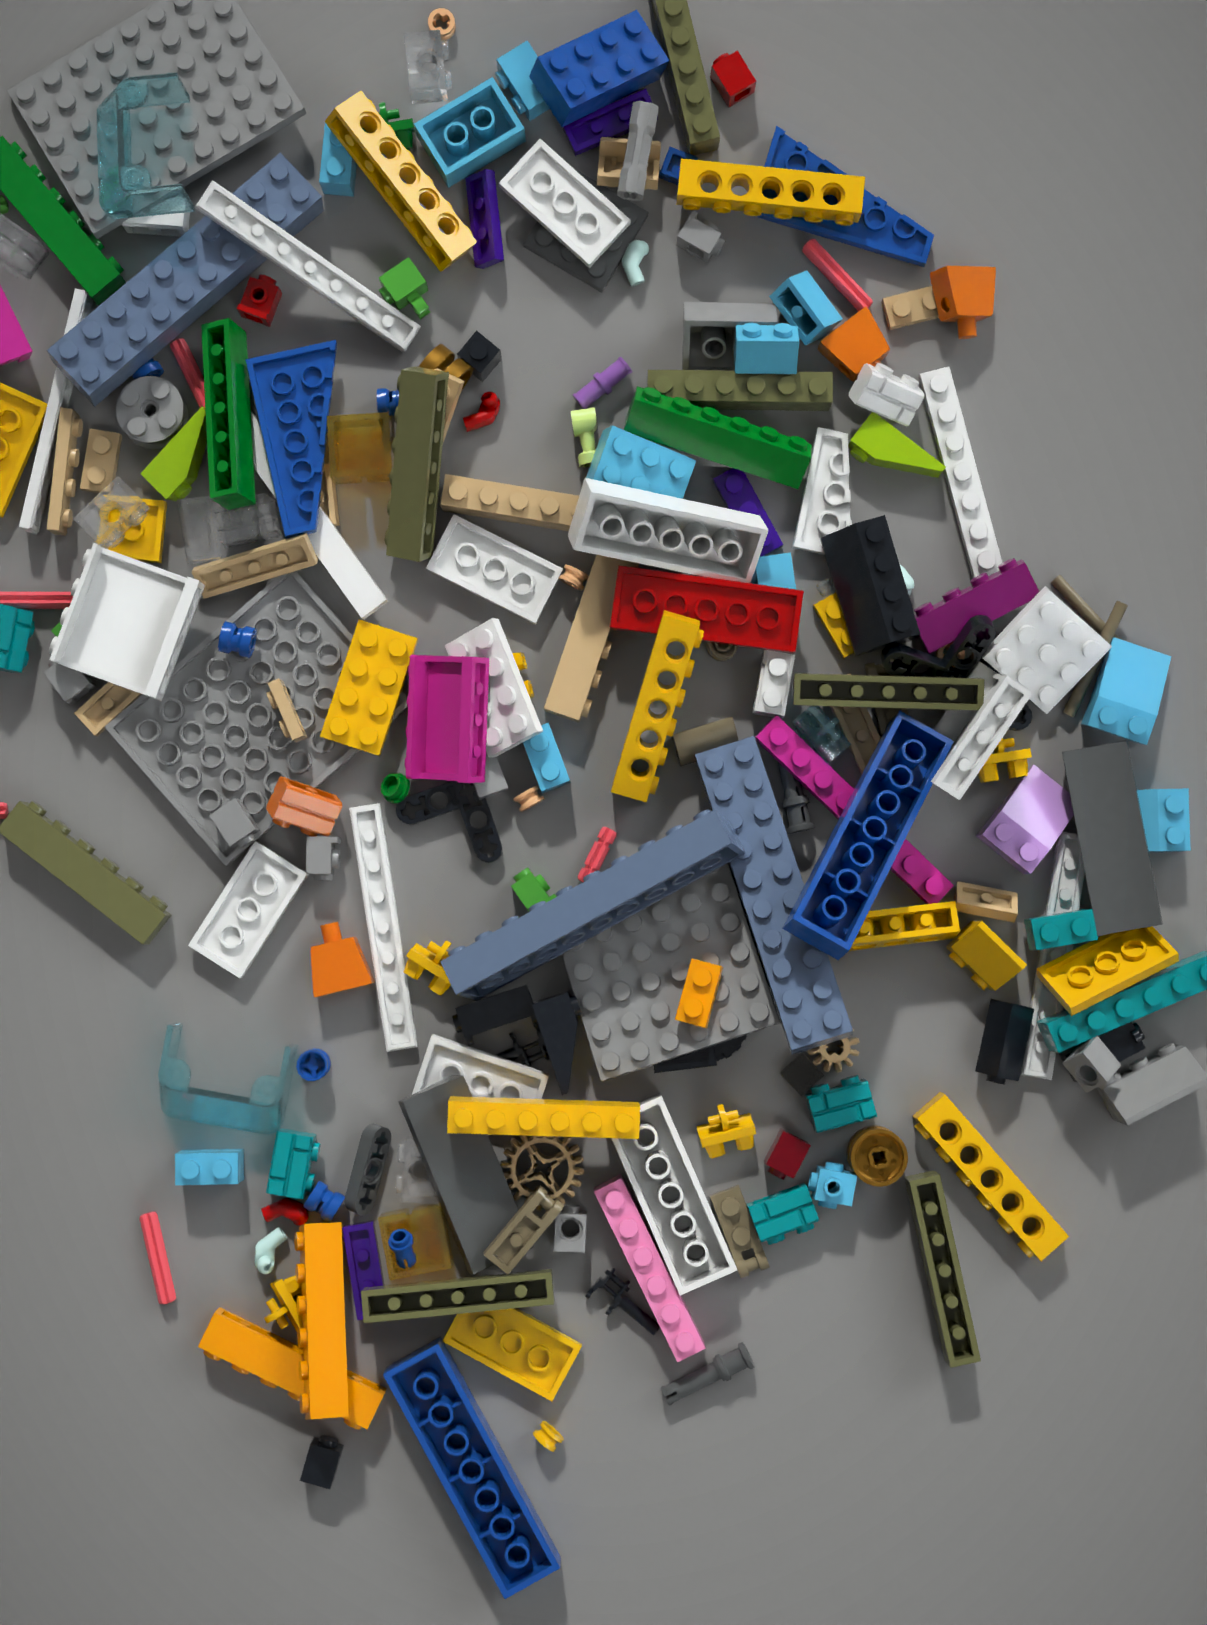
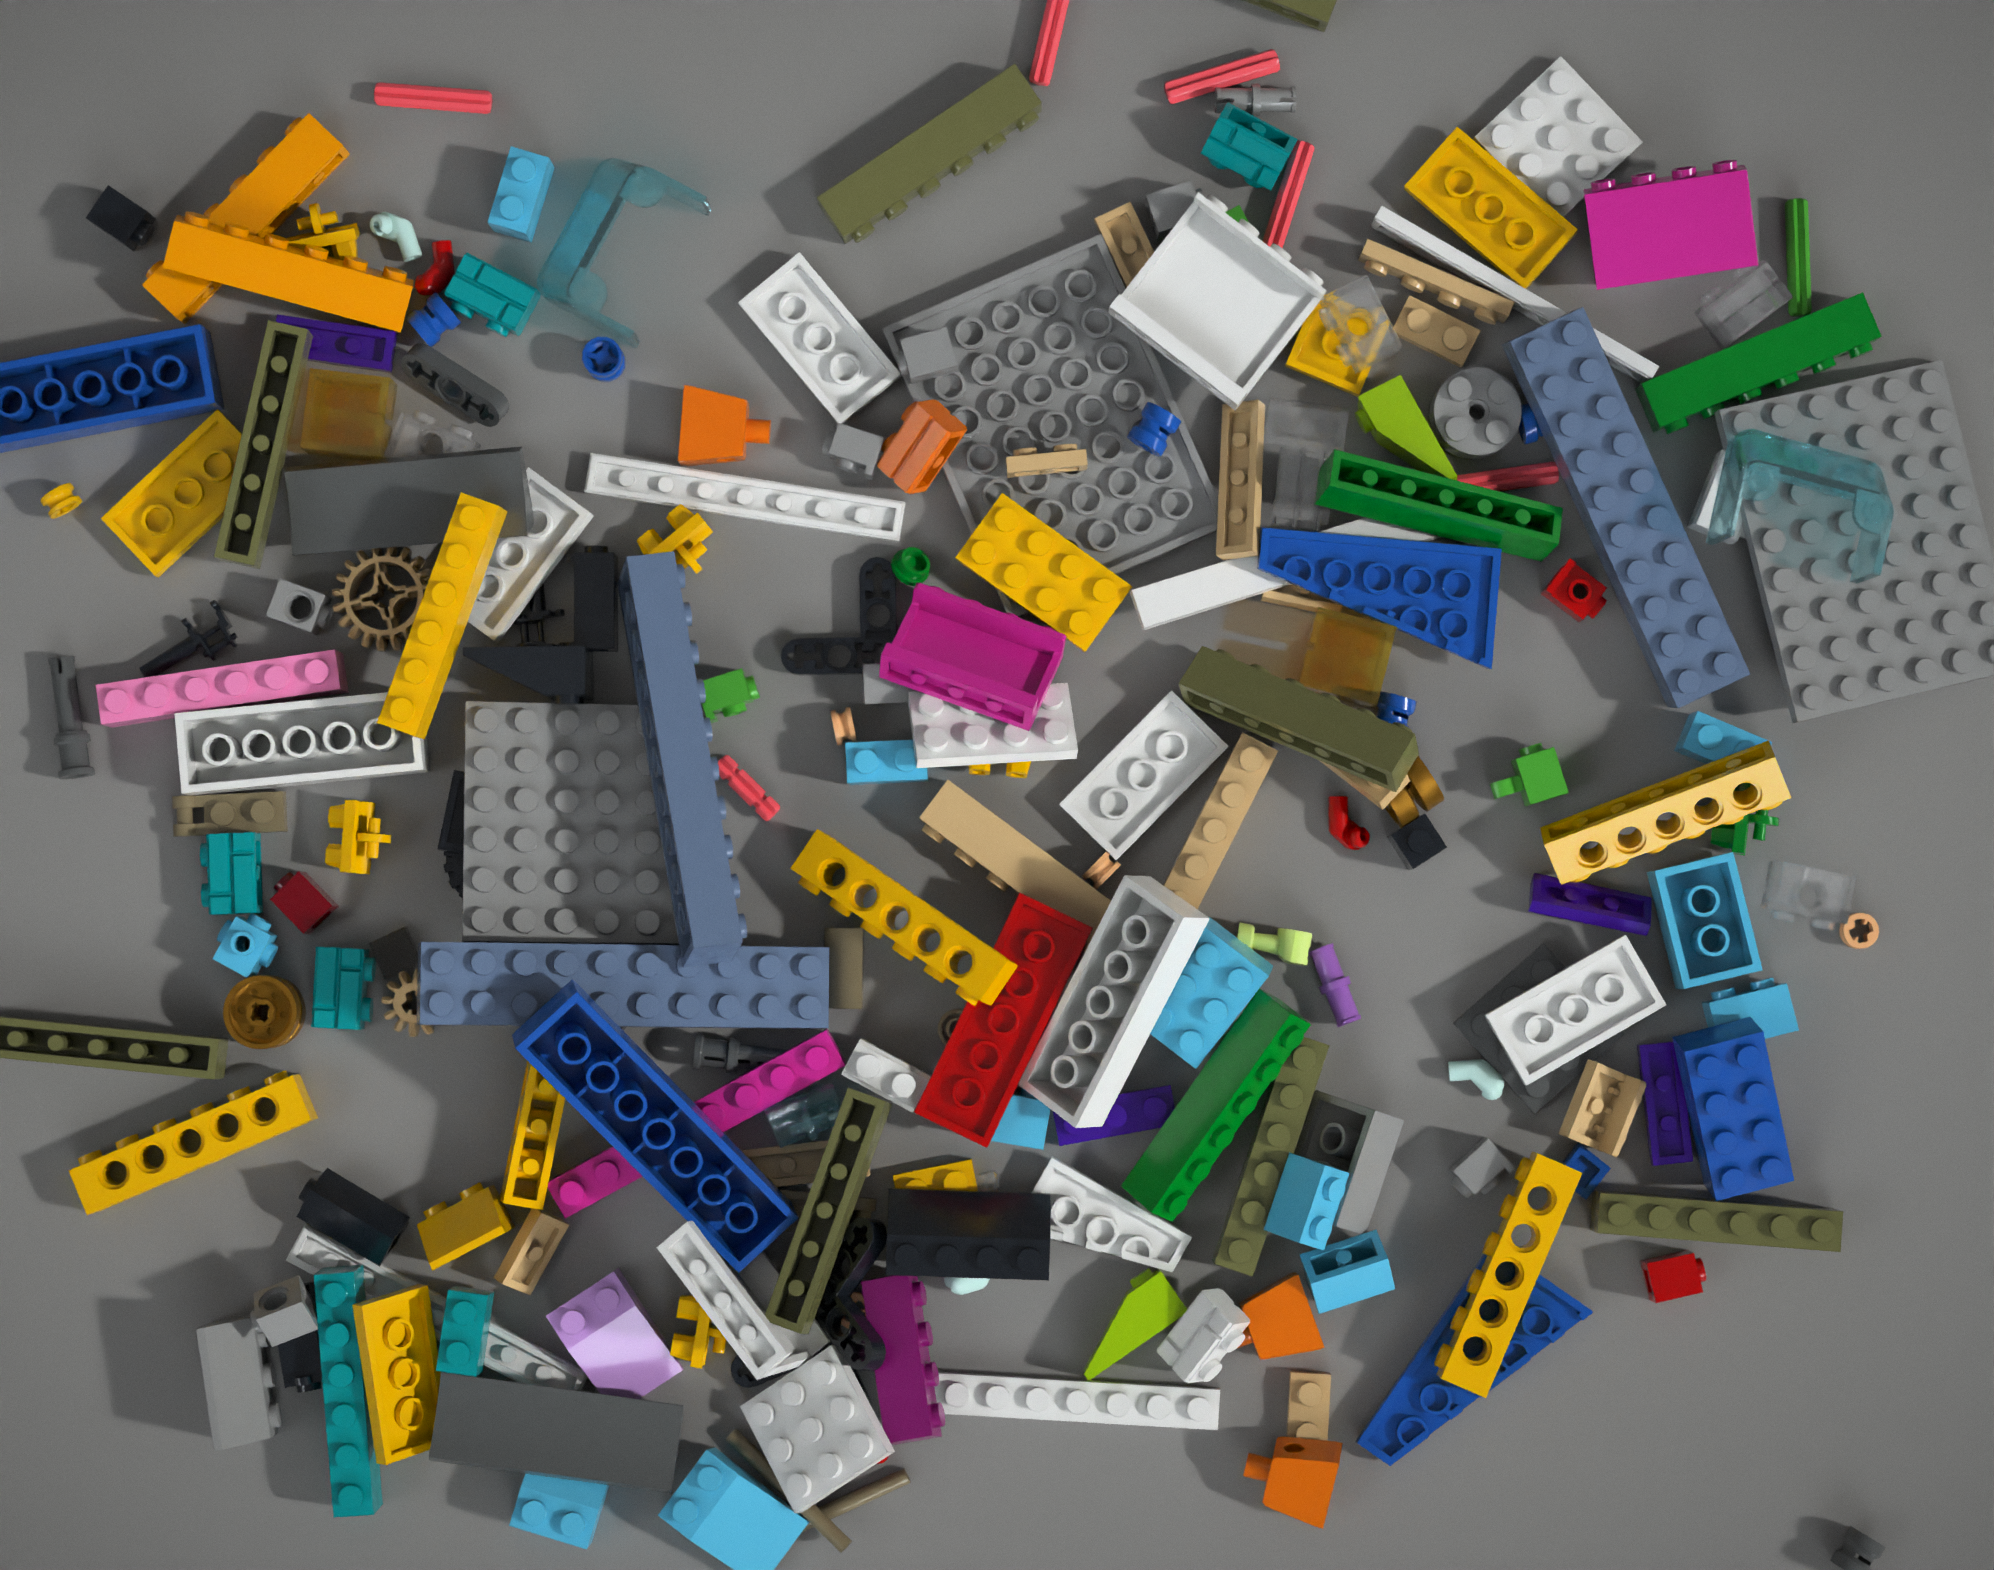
camera: 115 degrees right, 0 degrees up
(307, 266) = (1592, 662): white tile -> none
(401, 1243) = (350, 396): blue pin -> none
(523, 1230) = (316, 548): dark tan plate -> none
(634, 169) = (1610, 1122): light grey axle -> none
(699, 993) = (530, 854): light orange plate -> none
(836, 275) = (1378, 1326): coral axle -> none

